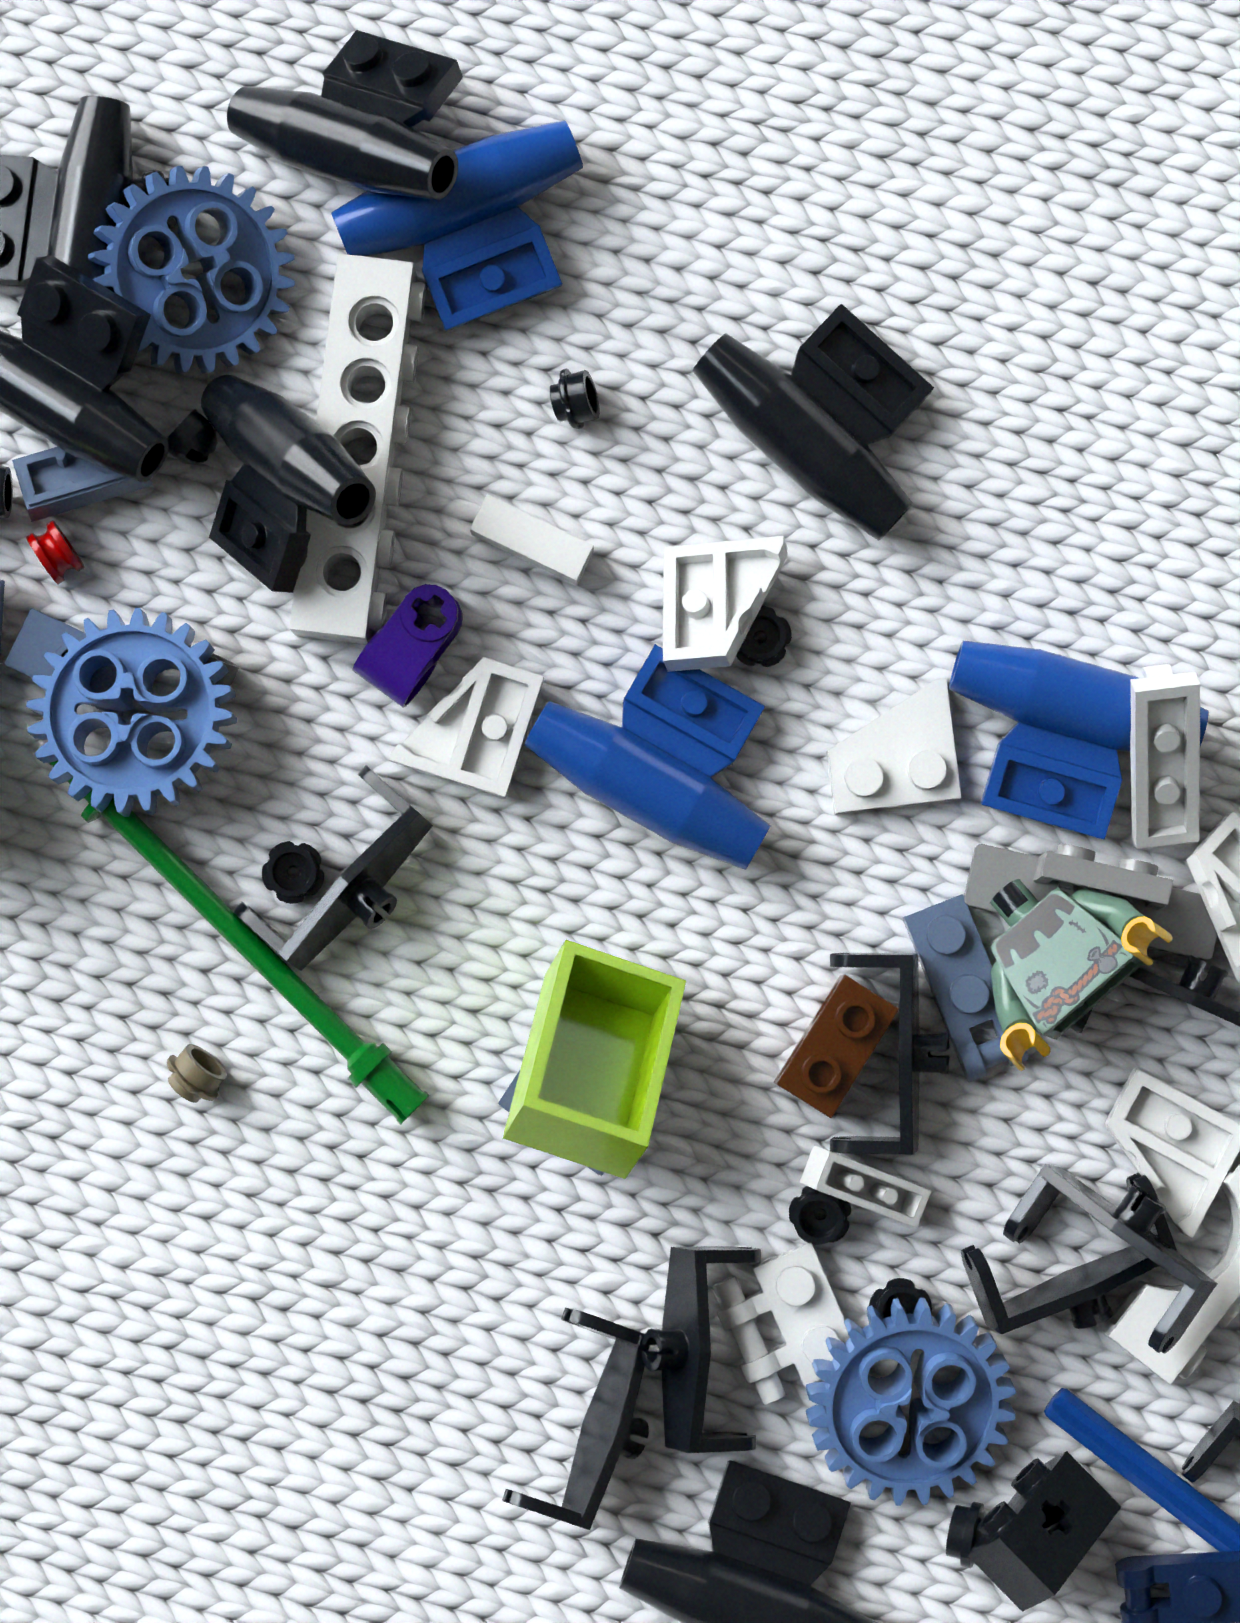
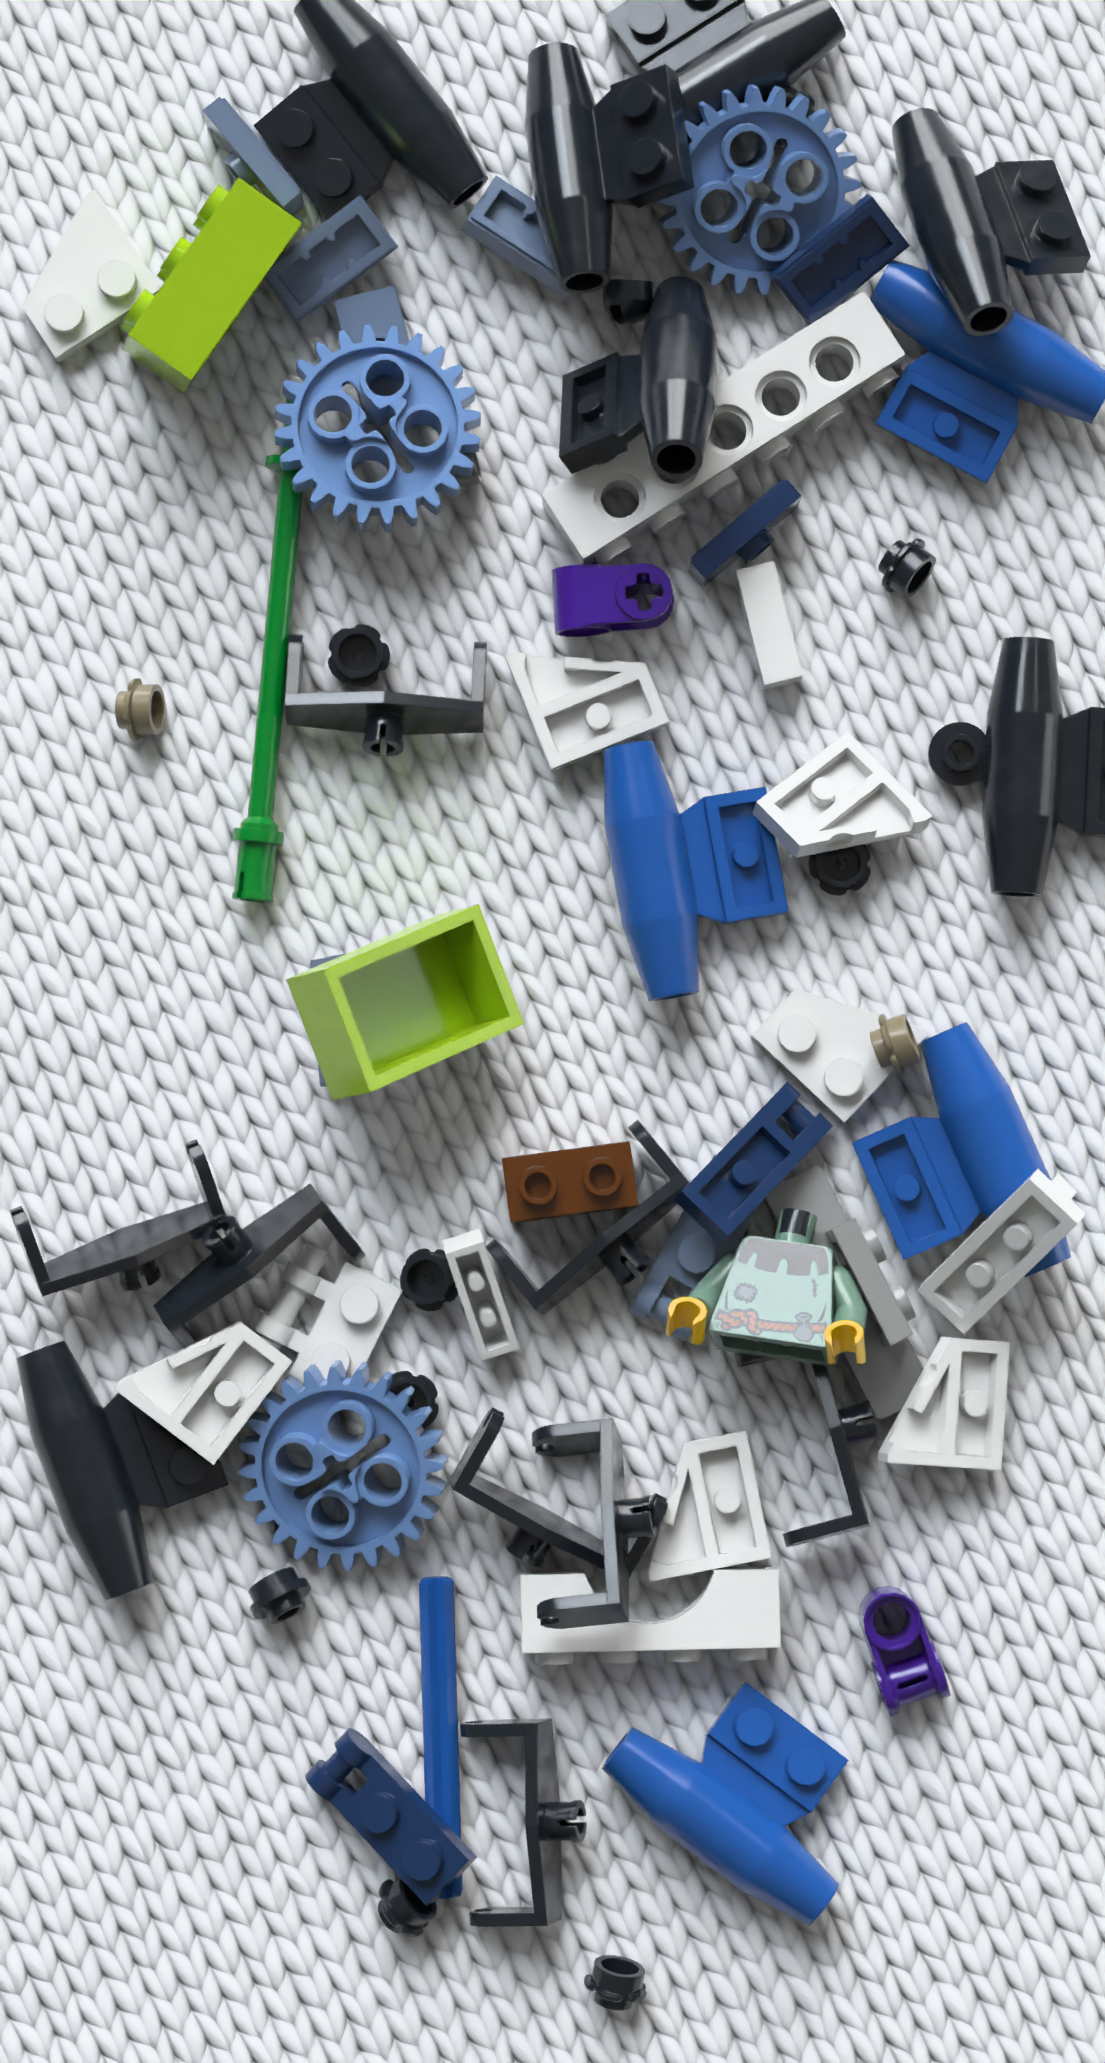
camera: 50 degrees right, 0 degrees up
(55, 552) = (452, 267): red bush -> none
(298, 252) = (839, 259): none -> dark blue plate
(449, 499) = (746, 534): none -> dark blue plate
(745, 495) = (939, 757): none -> black plate
(766, 1459) = (208, 1387): none -> white wing
(935, 709) = (895, 1043): none -> dark tan plate
(938, 895) = (752, 1164): none -> dark blue plate
(1042, 1530) = (329, 1646): black brick -> none

